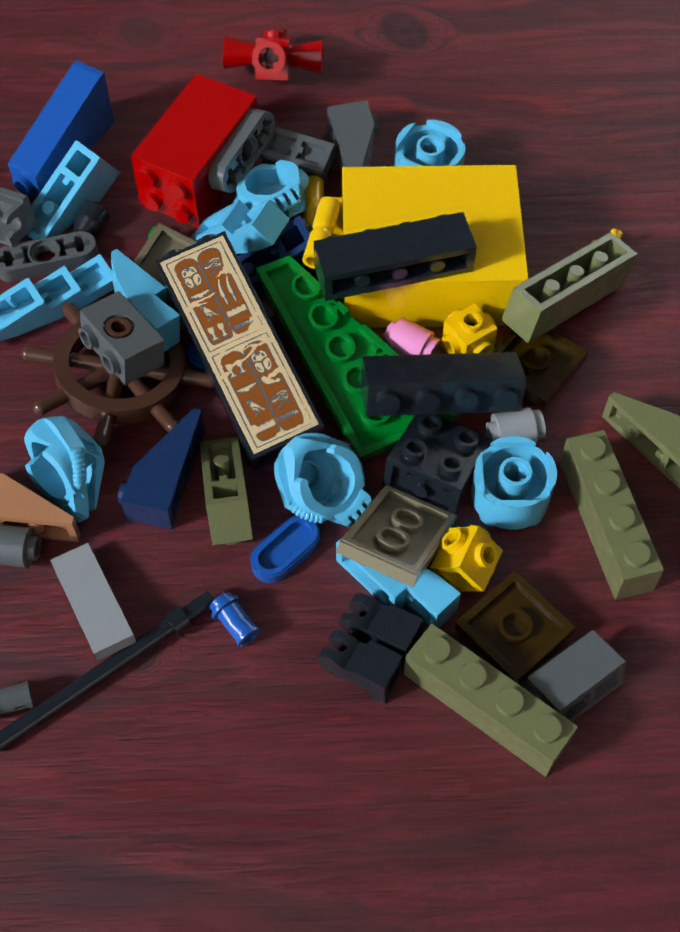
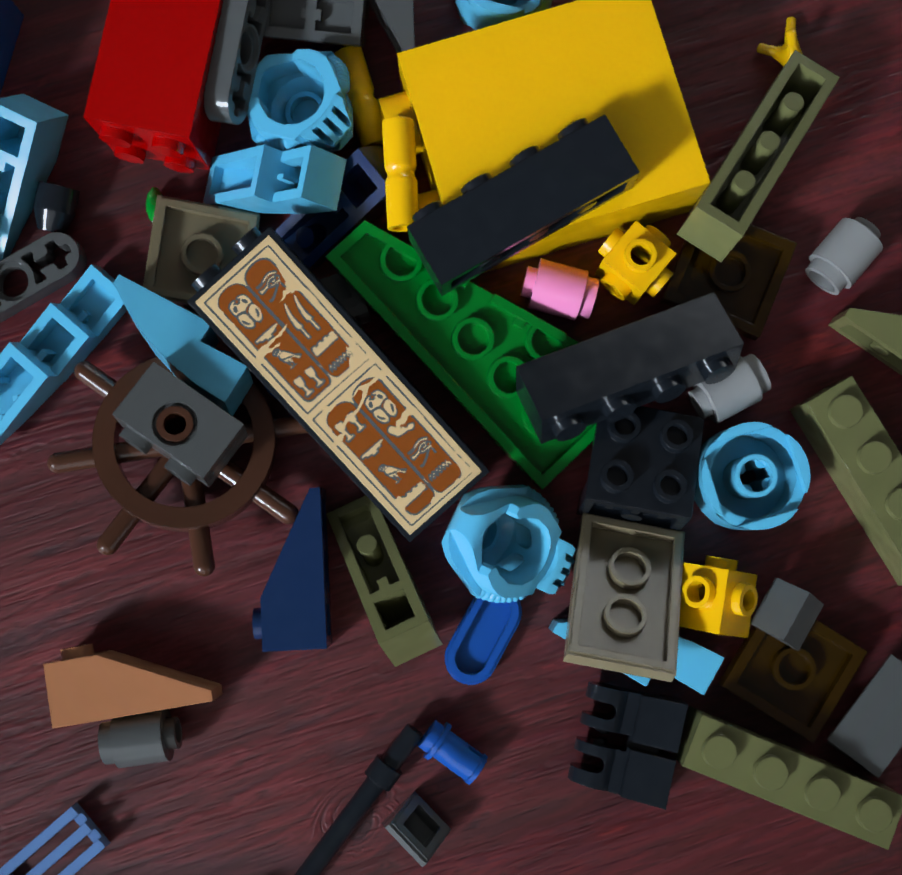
camera: 15 degrees left, 25 degrees up
(65, 464) = (174, 615): medium azure helmet -> none
(93, 602) = (272, 781): light grey tile -> none
(186, 668) = (417, 828): none -> dark grey slope
(520, 580) = (787, 613): none -> dark grey slope
(621, 369) = (844, 255): none -> light grey brick

